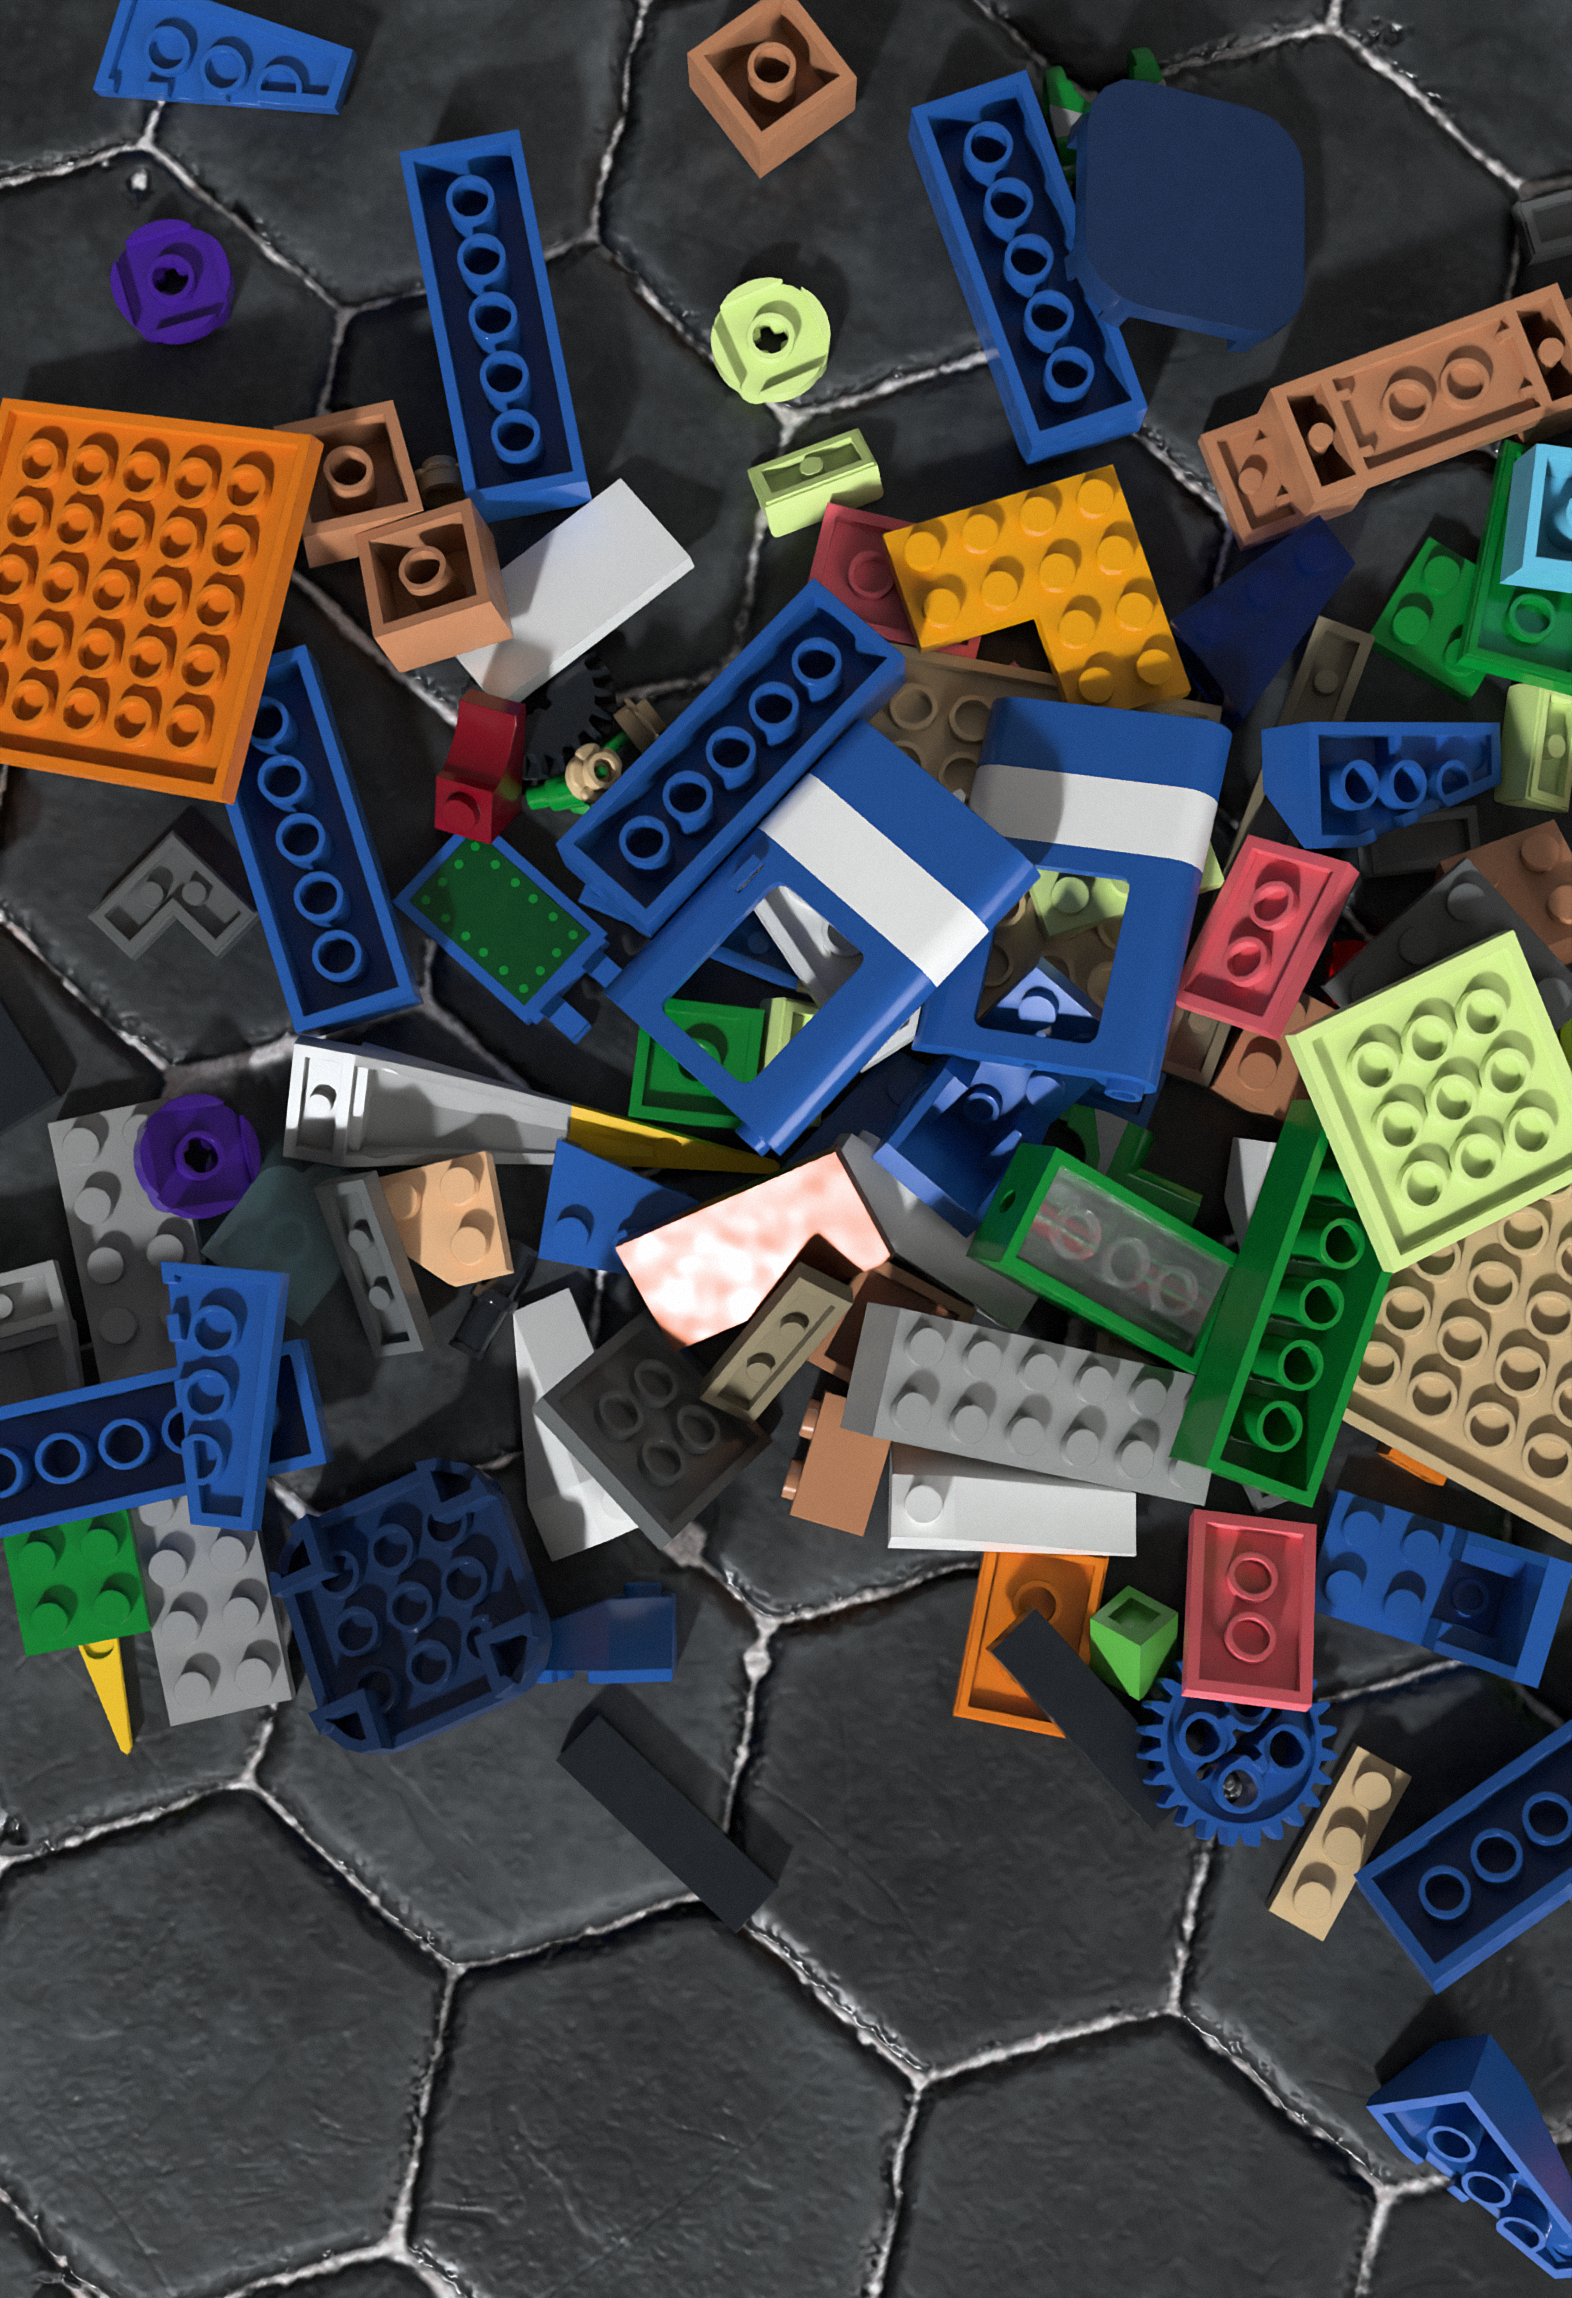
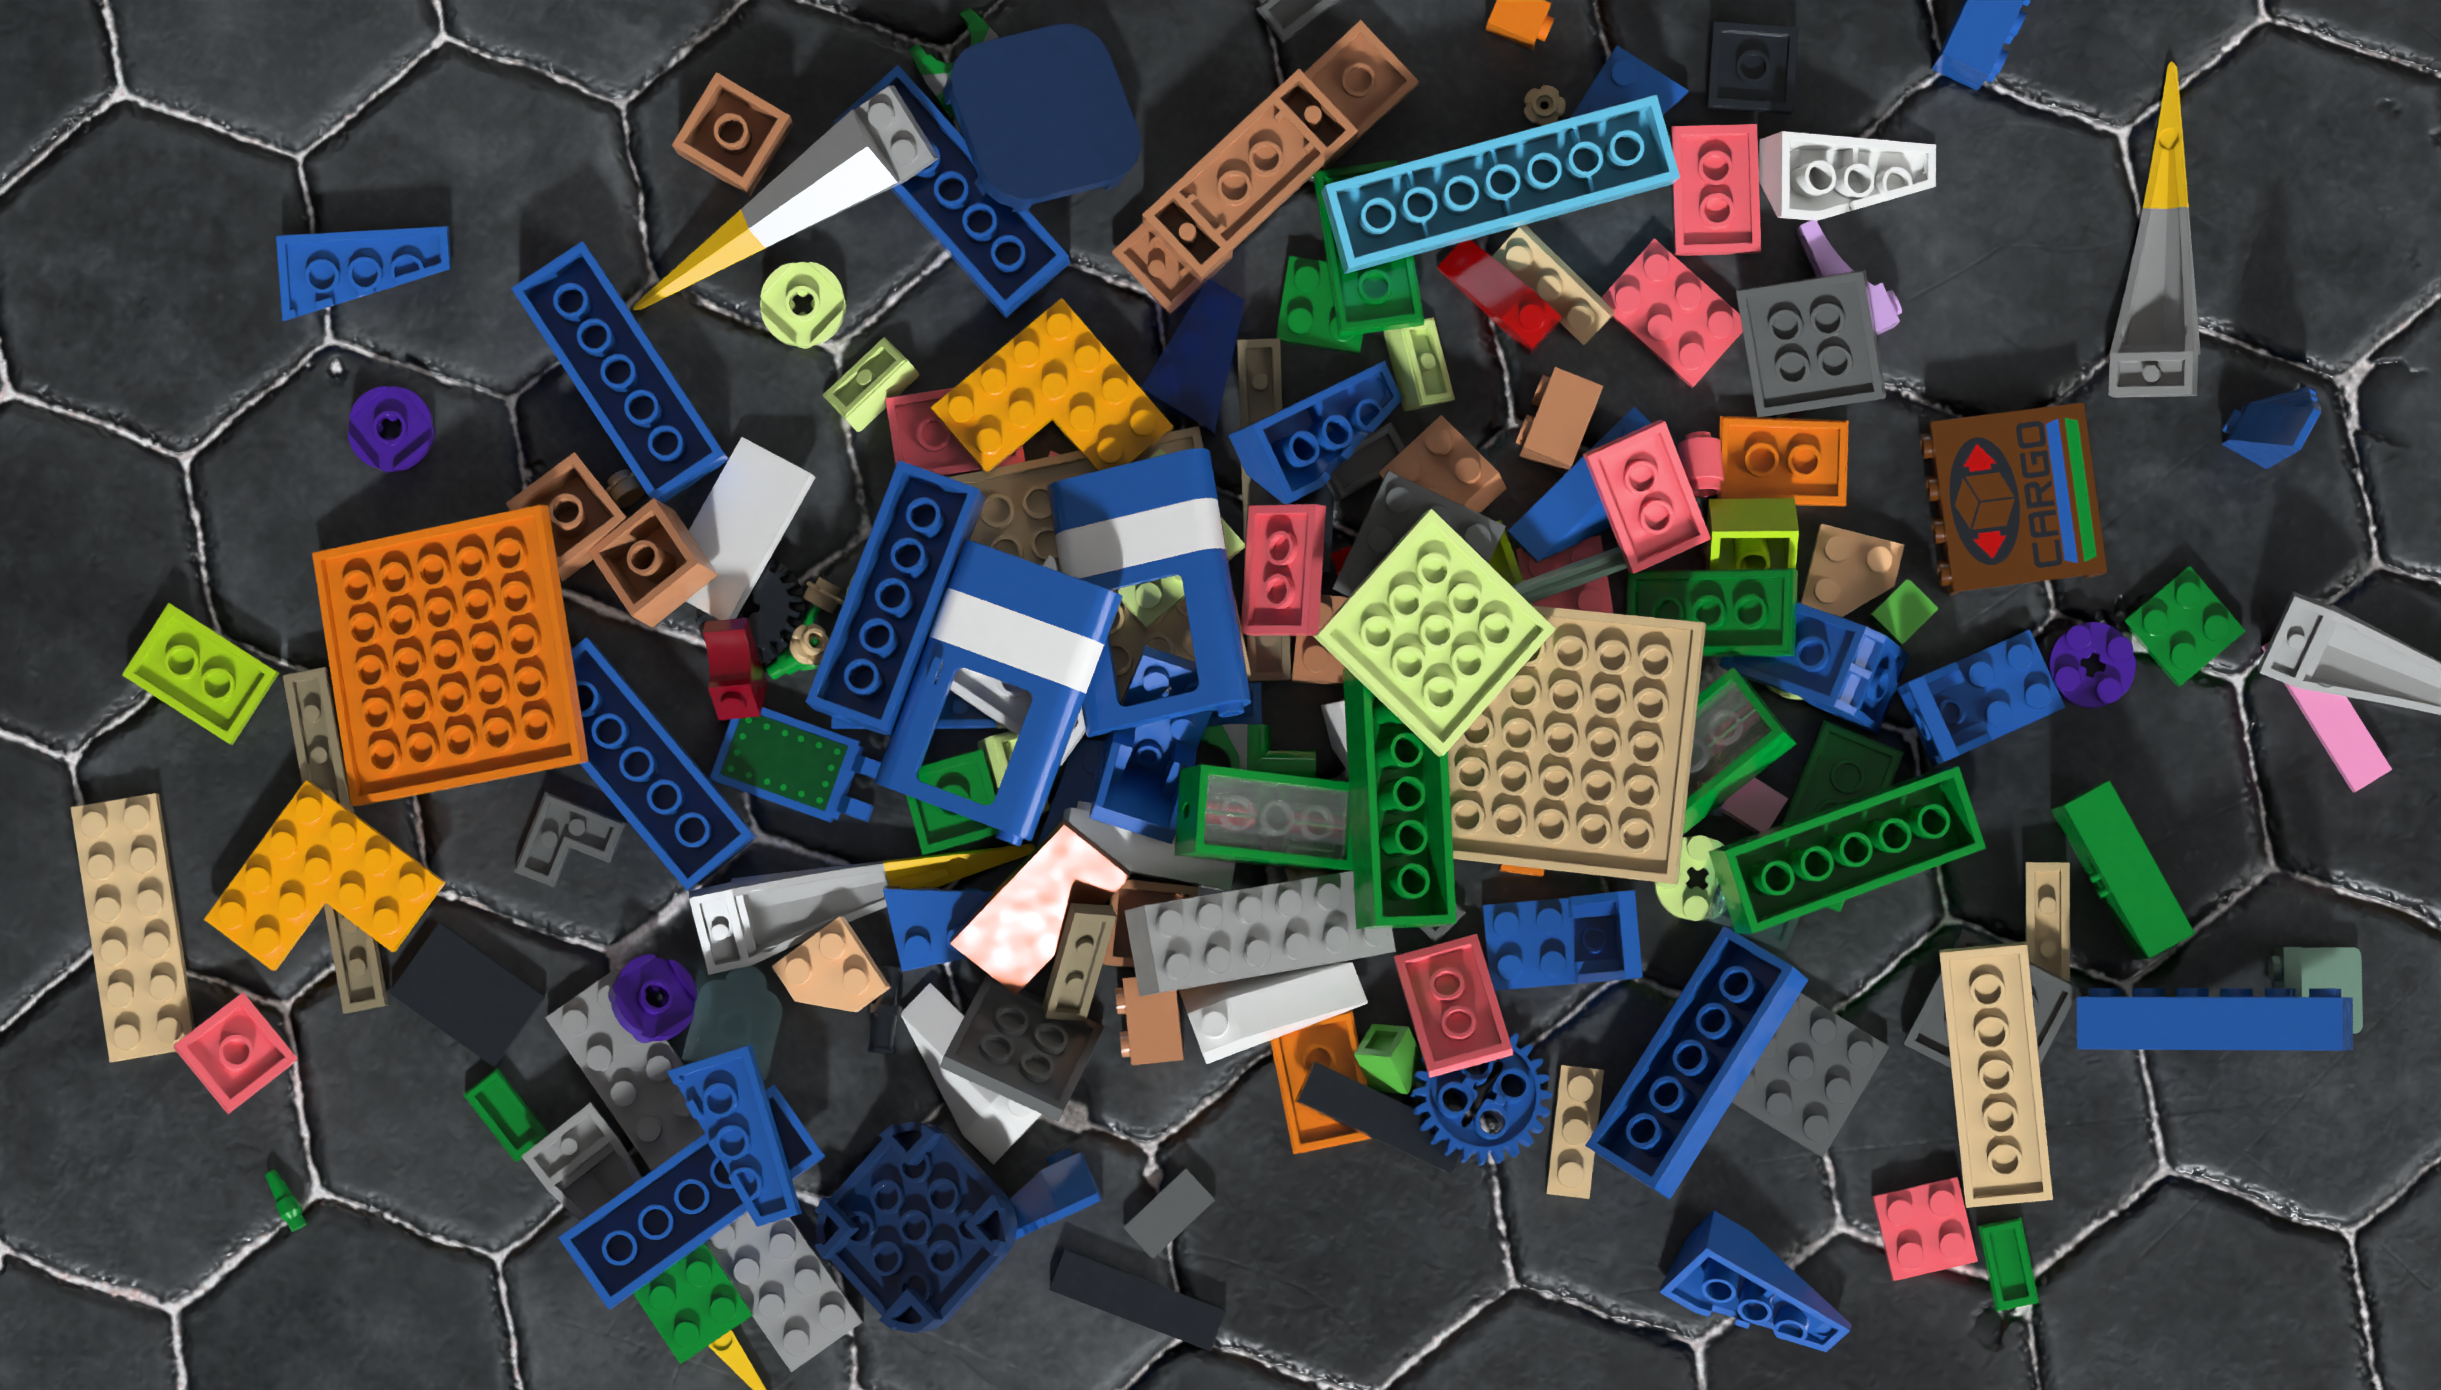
camera: 20 degrees left, 0 degrees up
(375, 1264) = (799, 1019): dark grey plate -> none
(756, 1724) = (1169, 1213): none -> dark grey tile
(912, 169) = (850, 163): none -> light grey plate

